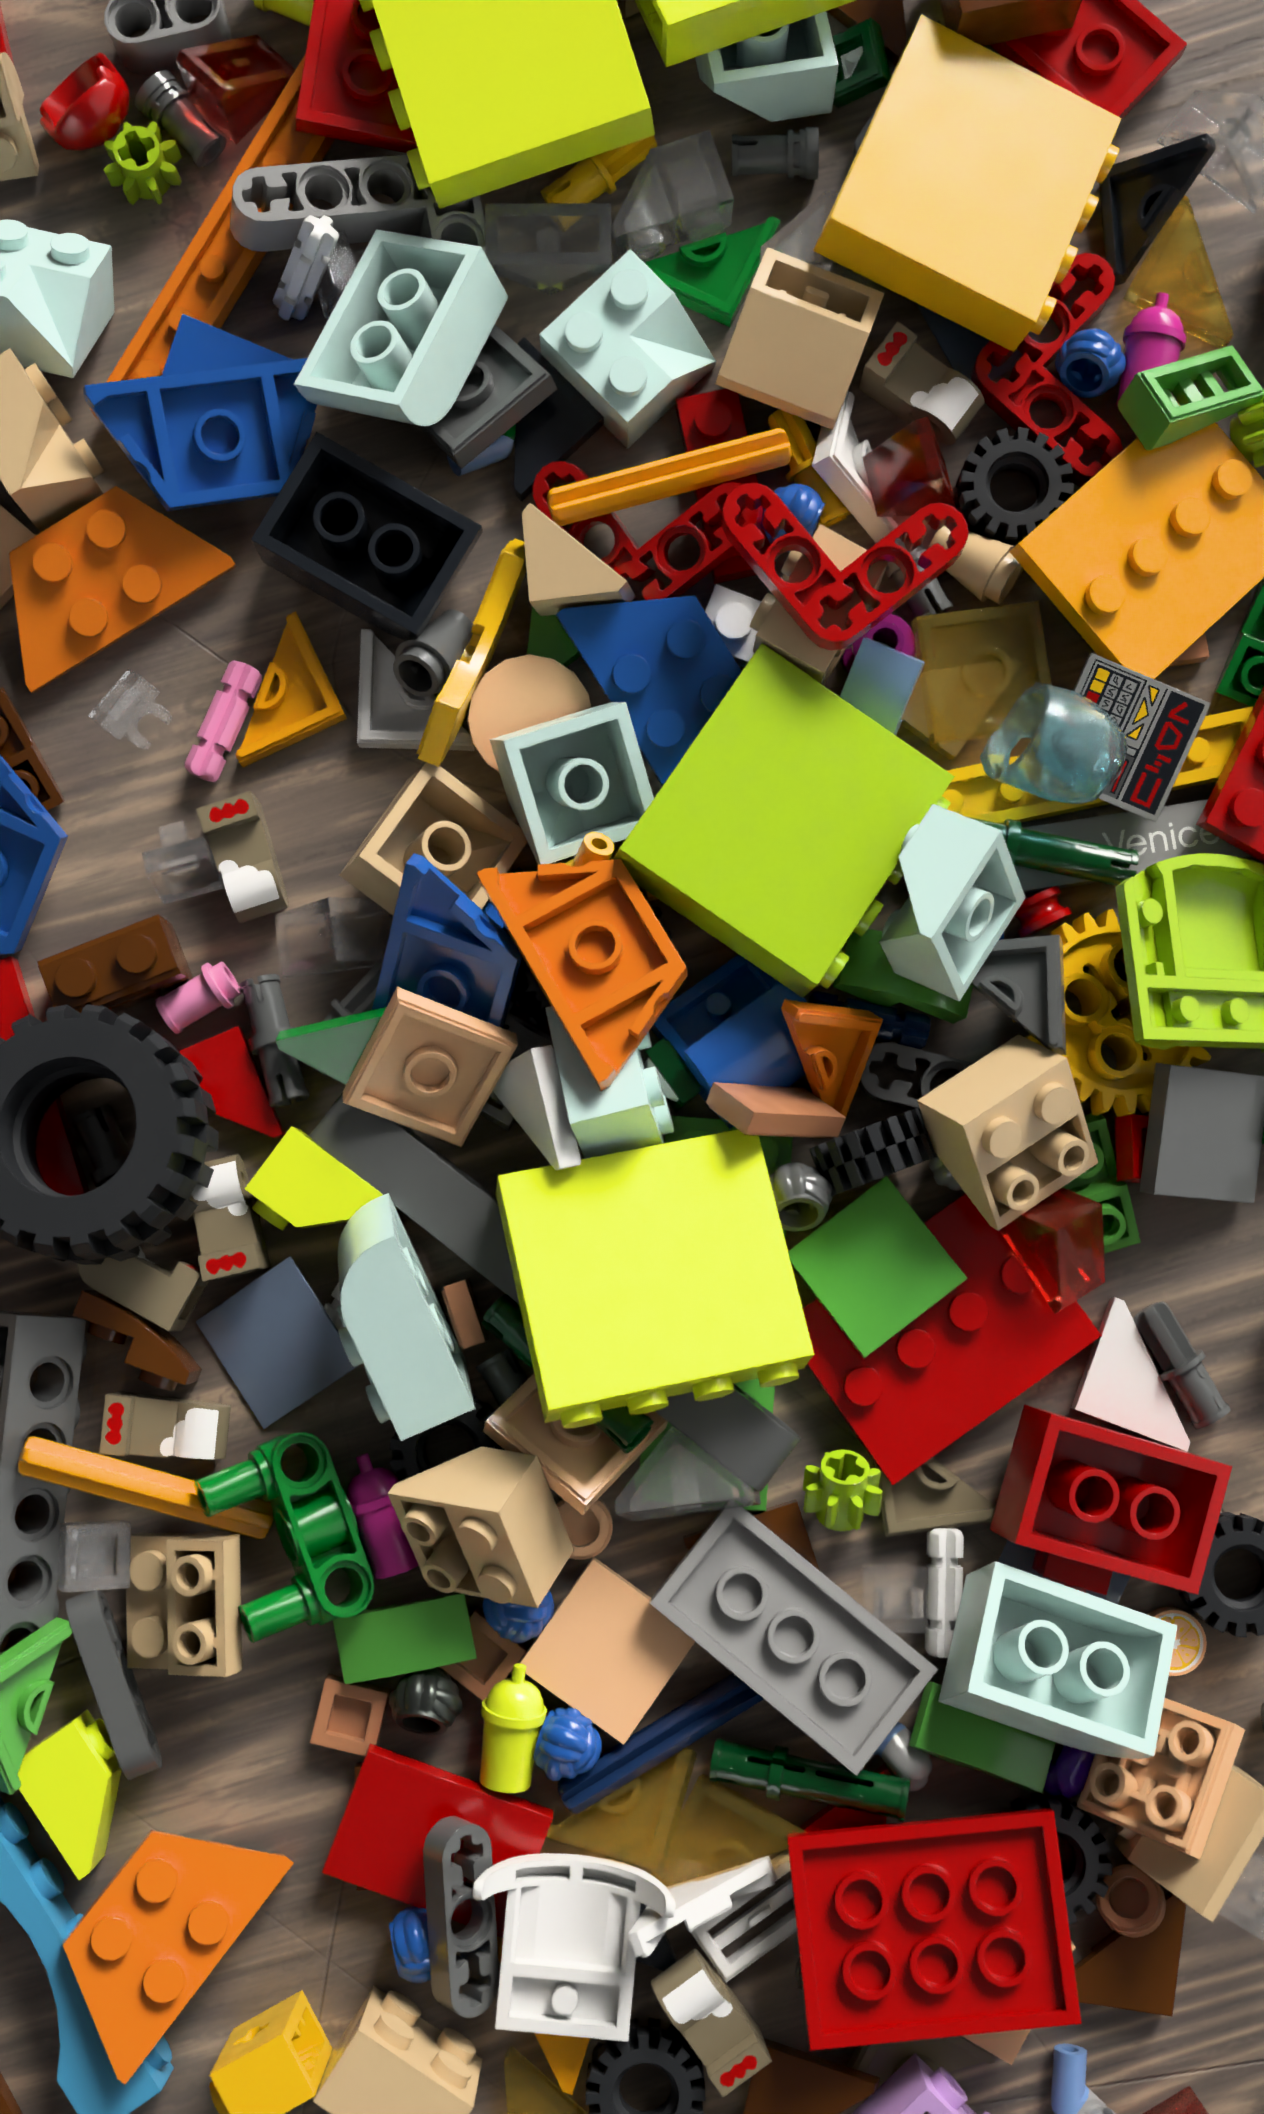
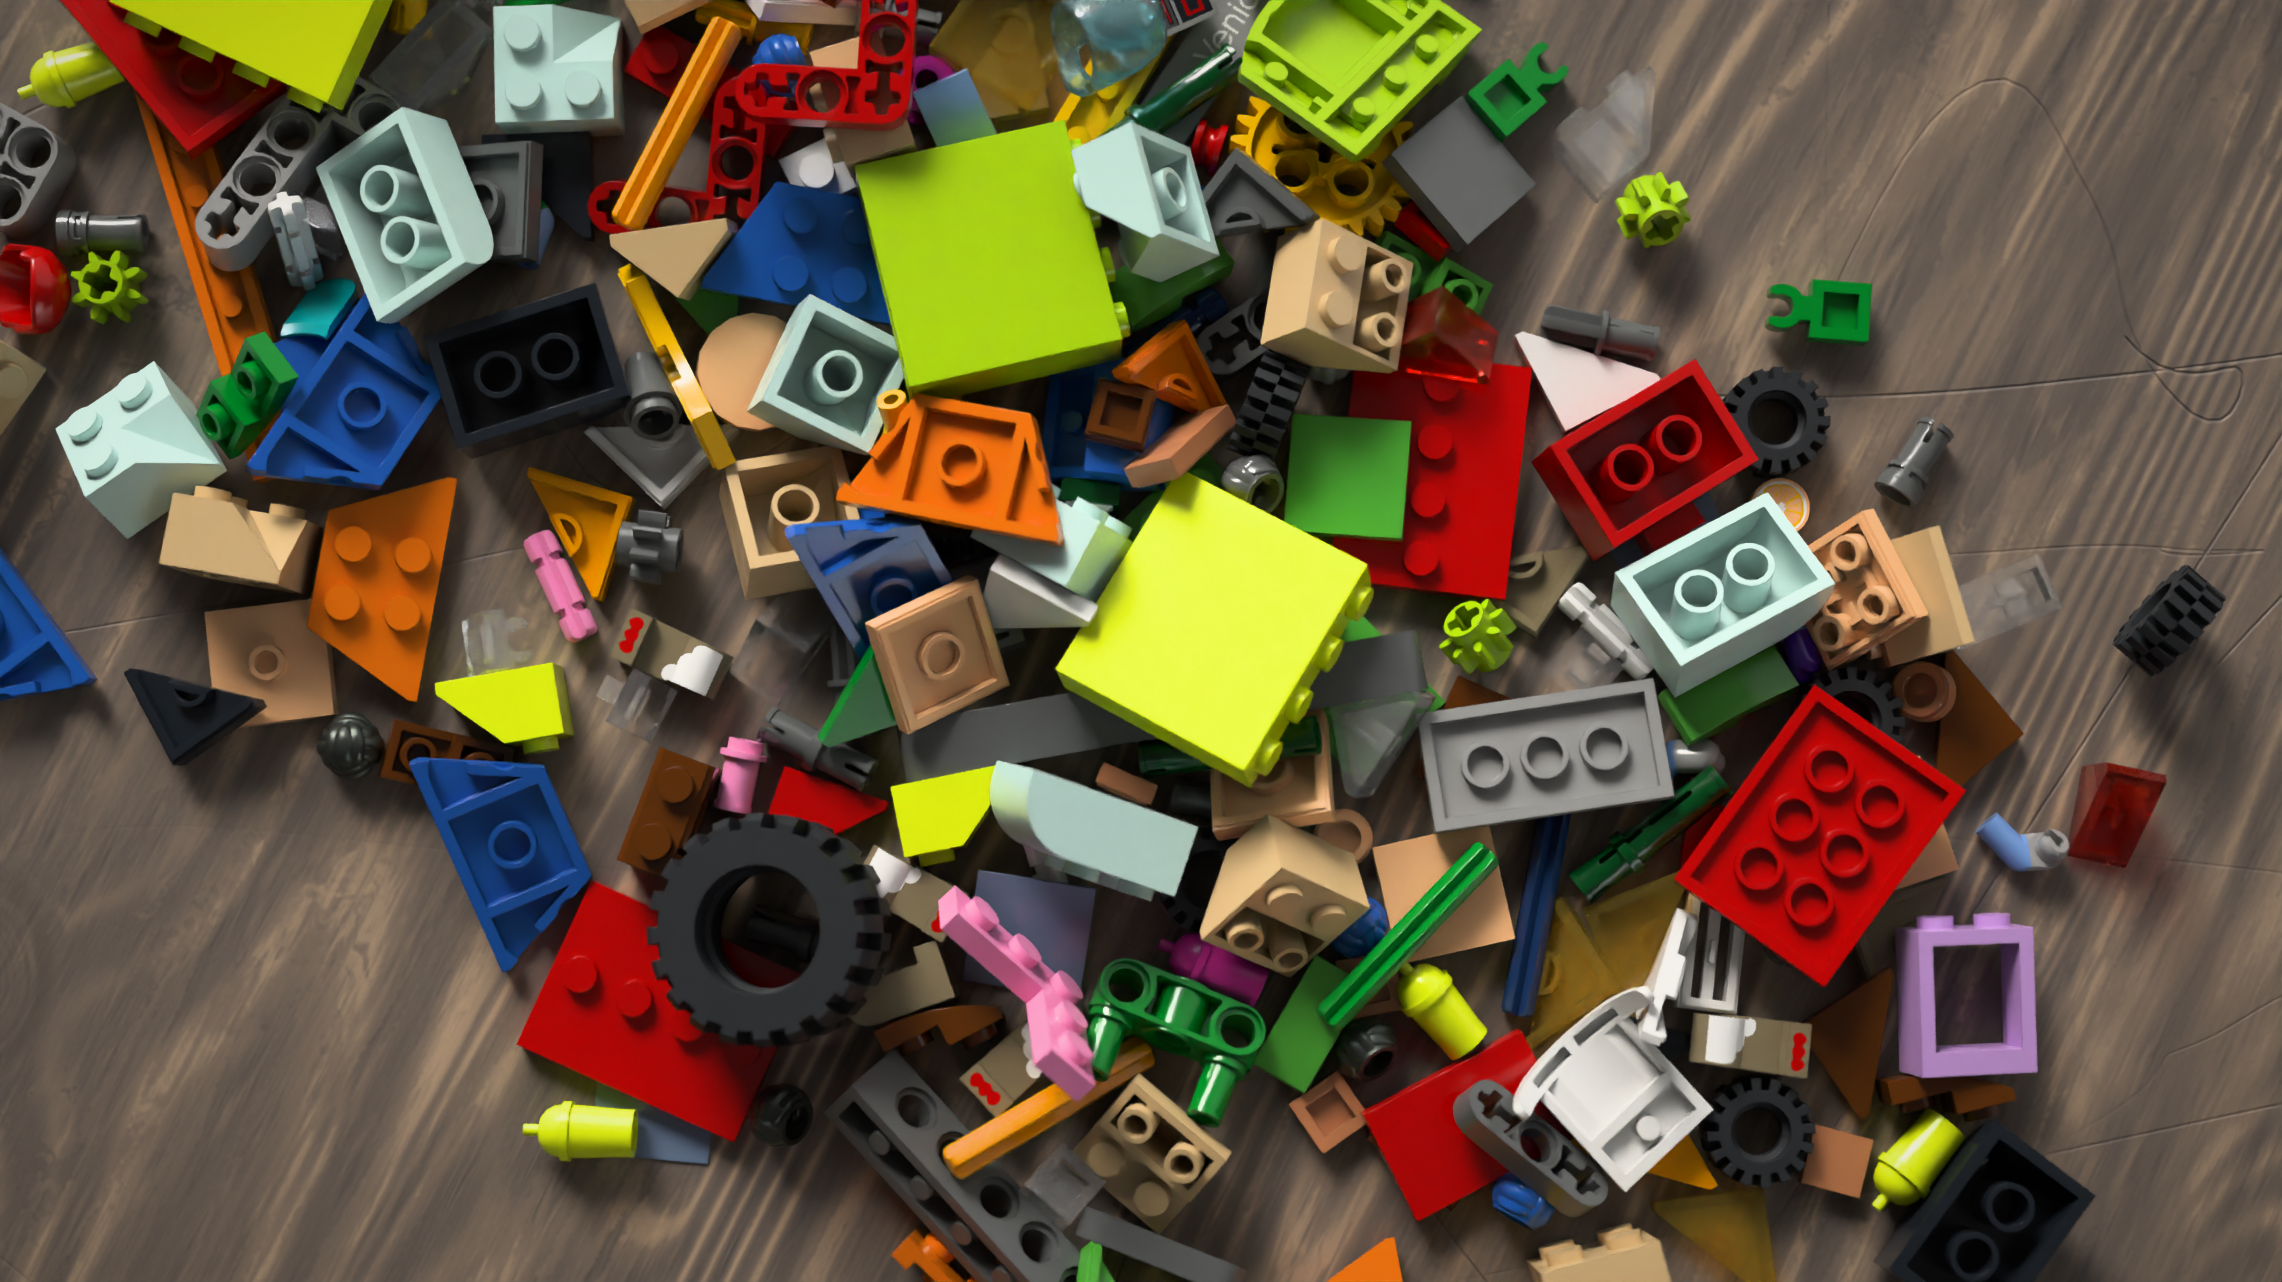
camera: 45 degrees left, 0 degrees up
(94, 772) = (516, 705): none -> neon yellow slope
(146, 342) = (248, 398): none -> green slope
(234, 82) = (112, 170): clear red slope -> none
(236, 1410) = (1051, 999): none -> bright pink plate
(270, 338) = (321, 309): none -> teal piece
(315, 762) = (650, 547): none -> dark grey gear
(544, 1657) = (1407, 936): none -> green axle
(567, 1744) = (1481, 977): blue piece -> none
(756, 1039) = (1120, 415): none -> reddish brown tile

